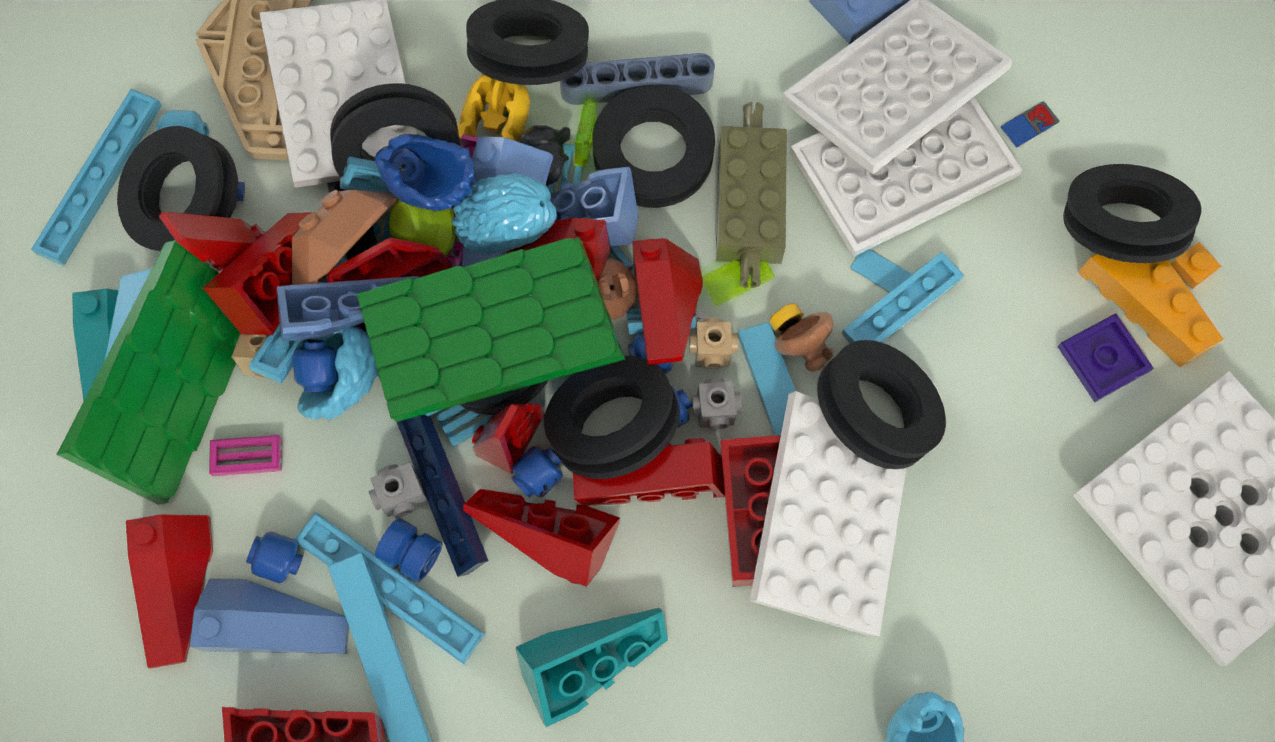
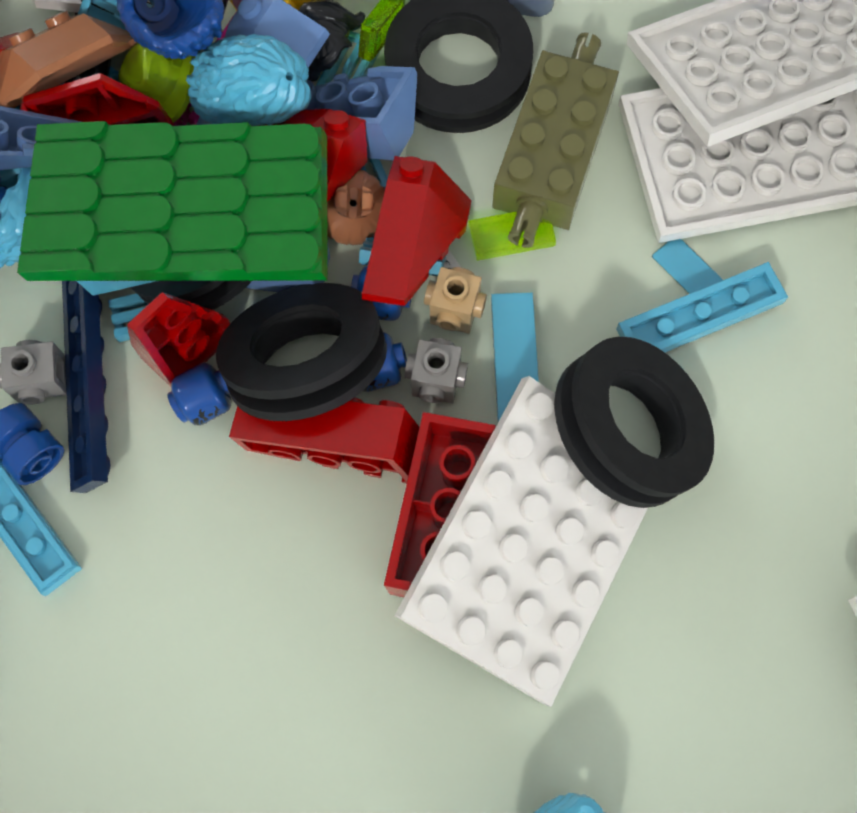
camera: 20 degrees right, 0 degrees up
(559, 539) = (198, 480): red wedge -> none
(579, 660) = (175, 631): teal wedge -> none
(785, 317) = (553, 292): yellow tile -> none
(808, 340) = (570, 324): nougat hair -> none

